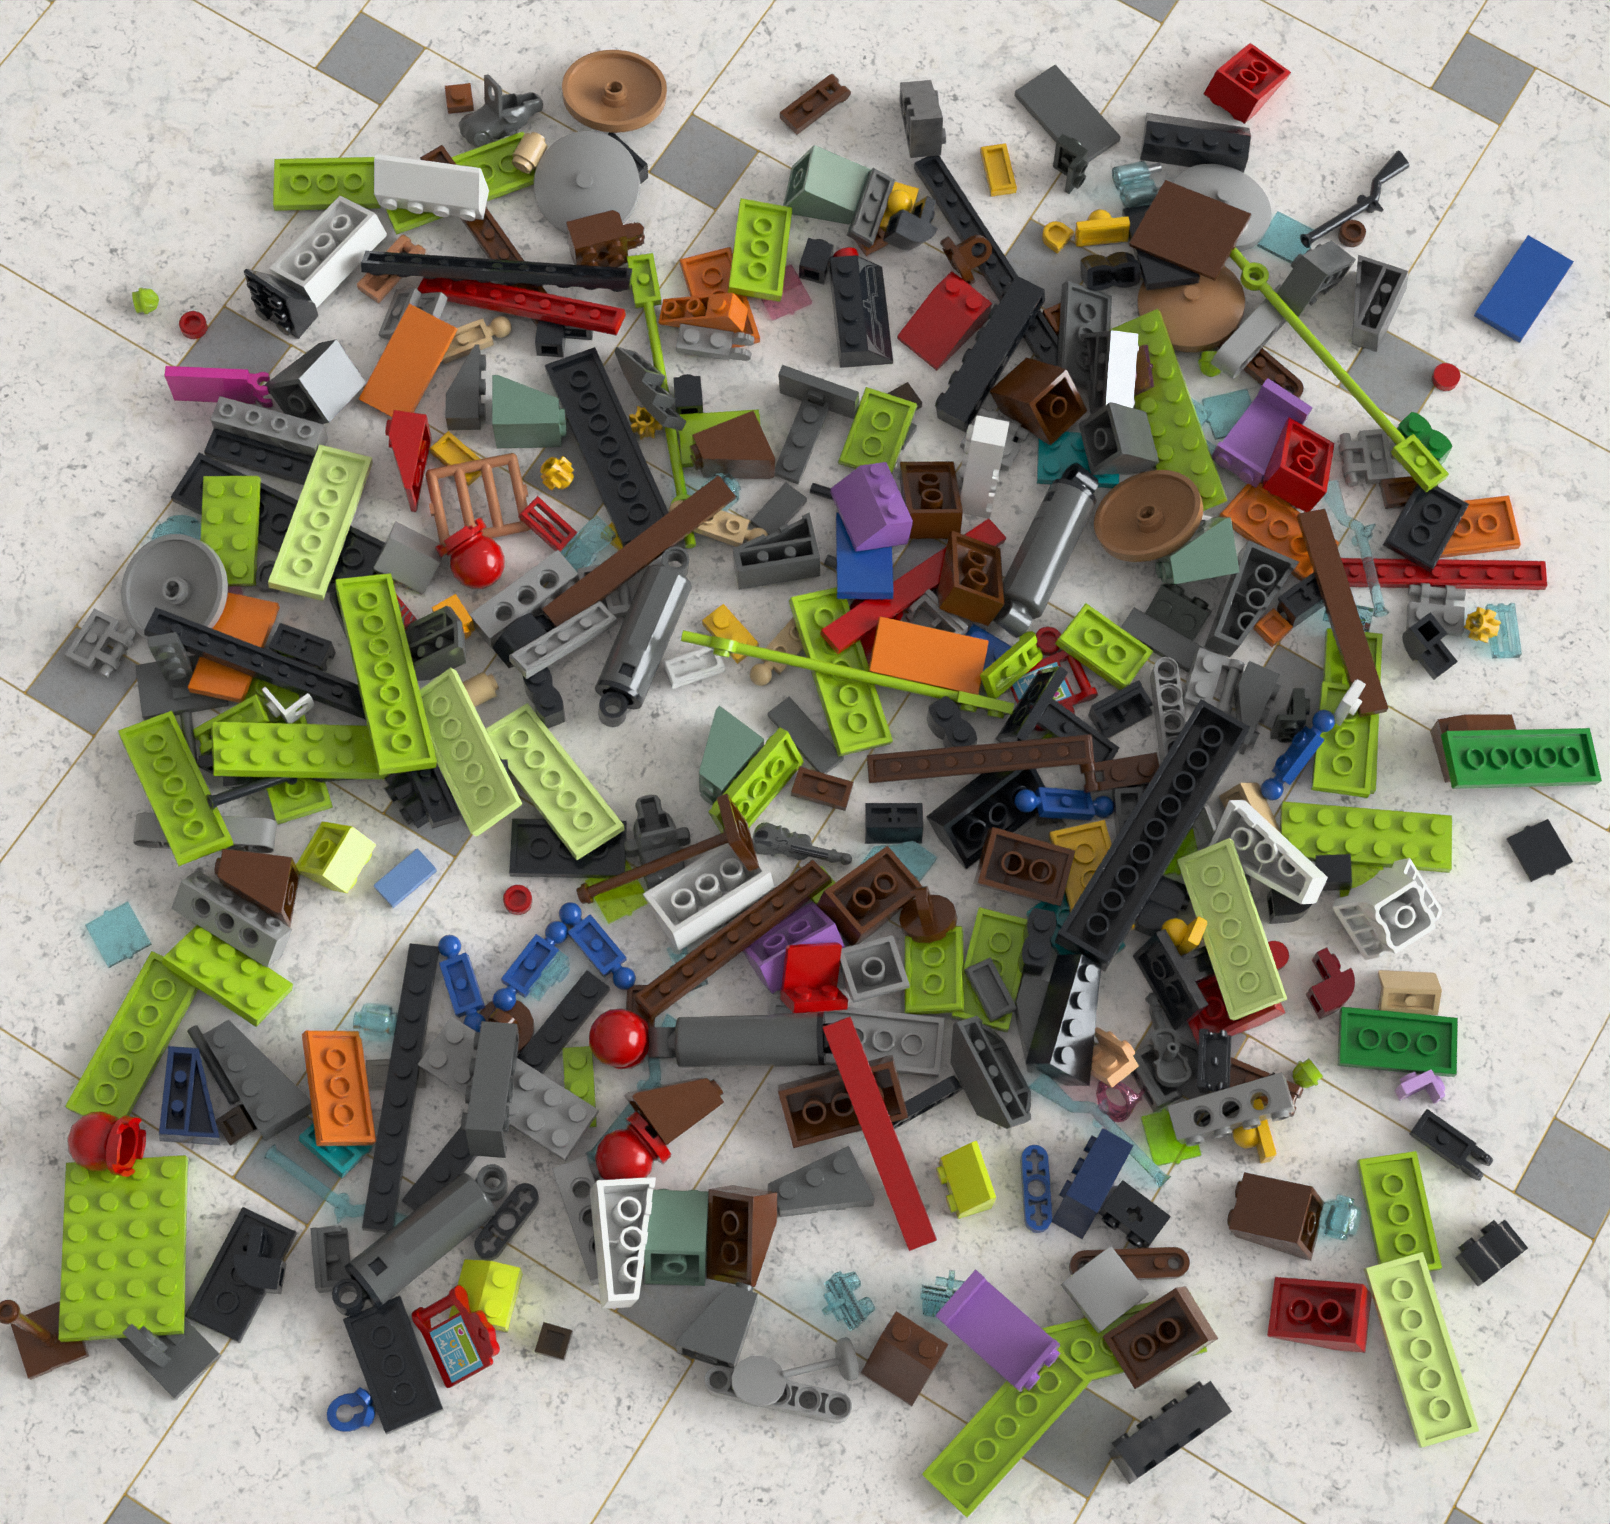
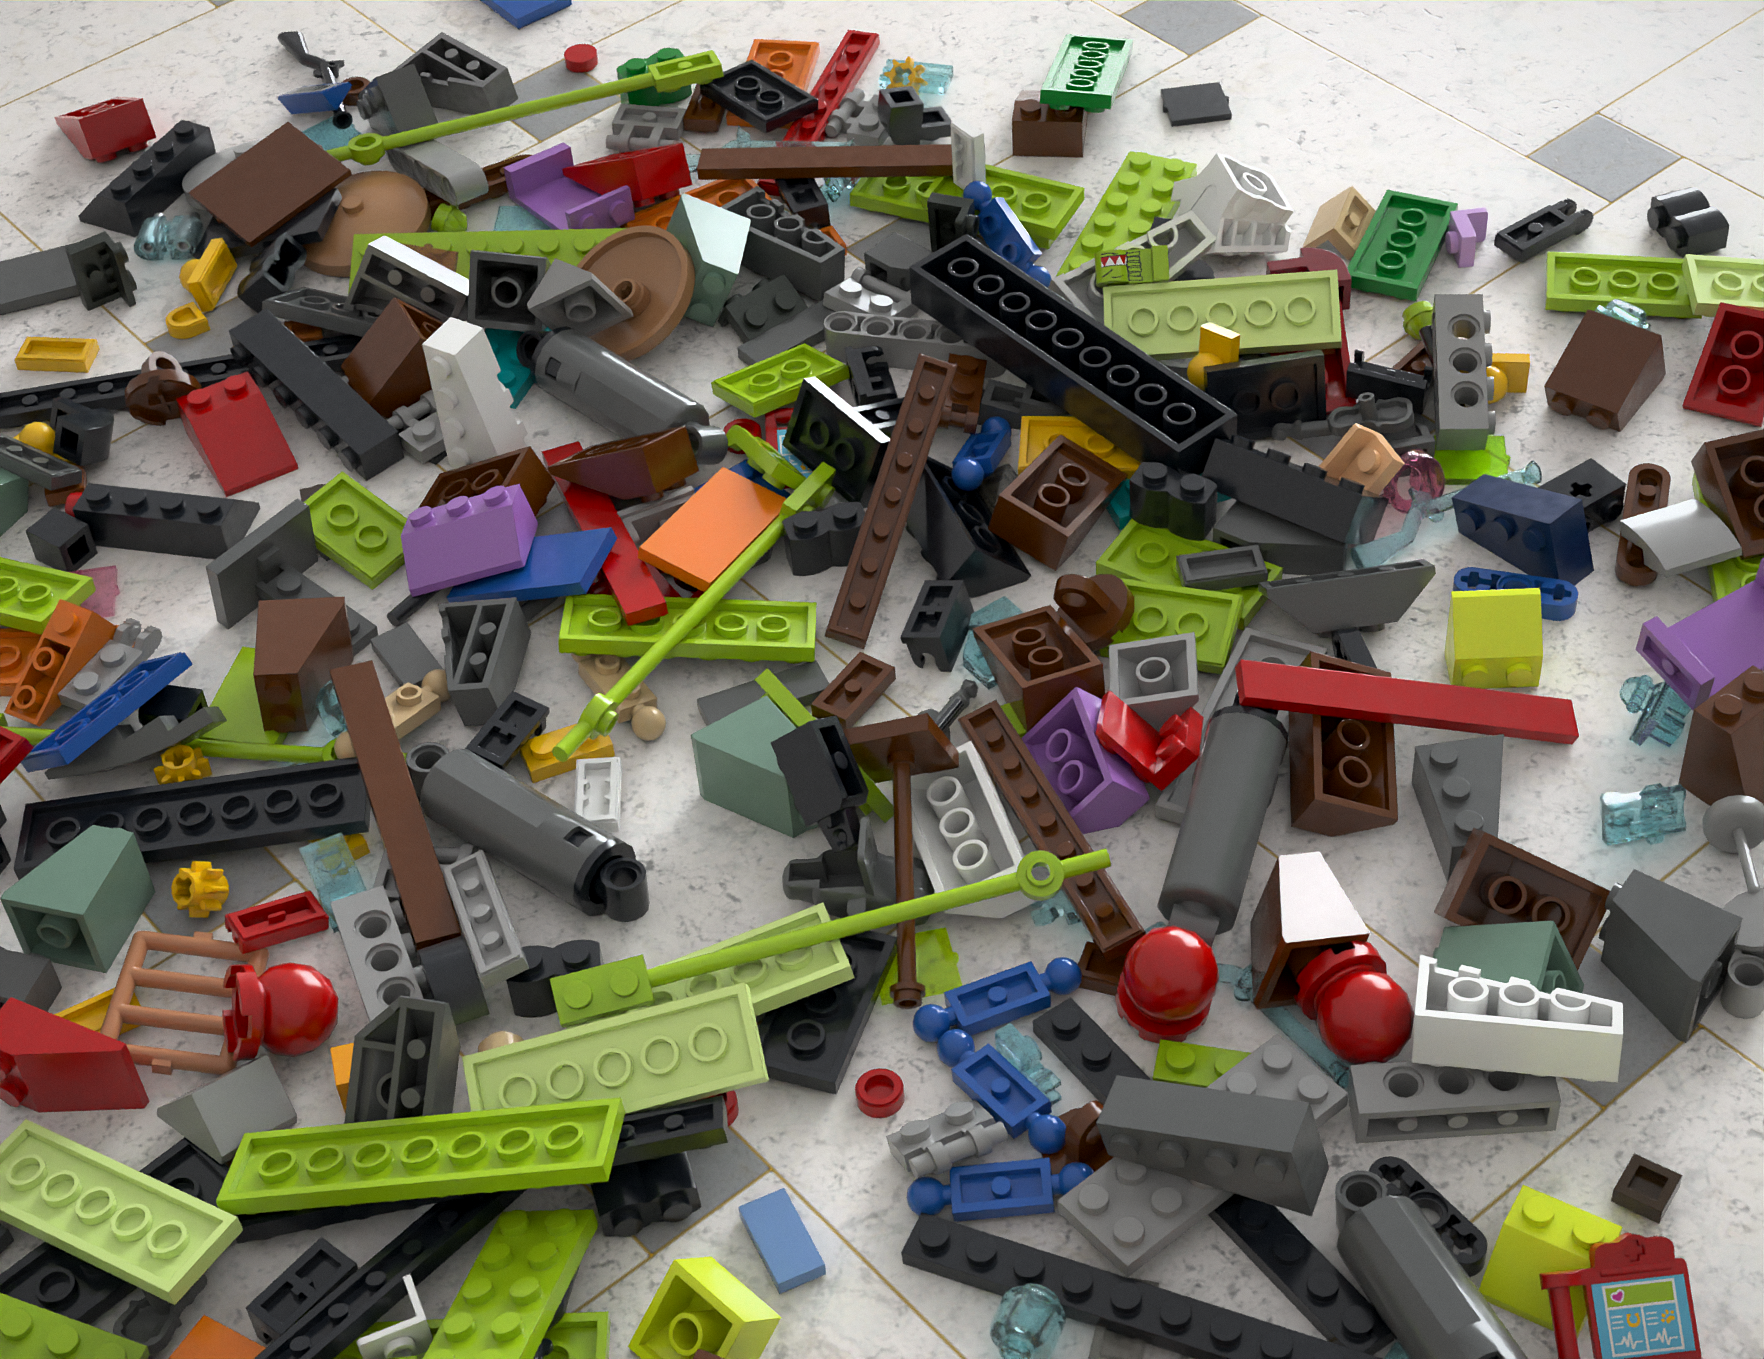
camera: 65 degrees left, 25 degrees down
(490, 941) = (946, 1138): none -> light grey plate
(535, 738) = (629, 983): none -> lime bar
(663, 360) = (105, 712): none -> blue tile
(695, 794) = (823, 779): none -> black hinge
(719, 595) = (509, 729): none -> black hinge
(1118, 486) = (576, 300): none -> light grey slope
(1249, 853) = (1132, 266): none -> lime leg
(1323, 211) = (315, 98): none -> blue slope

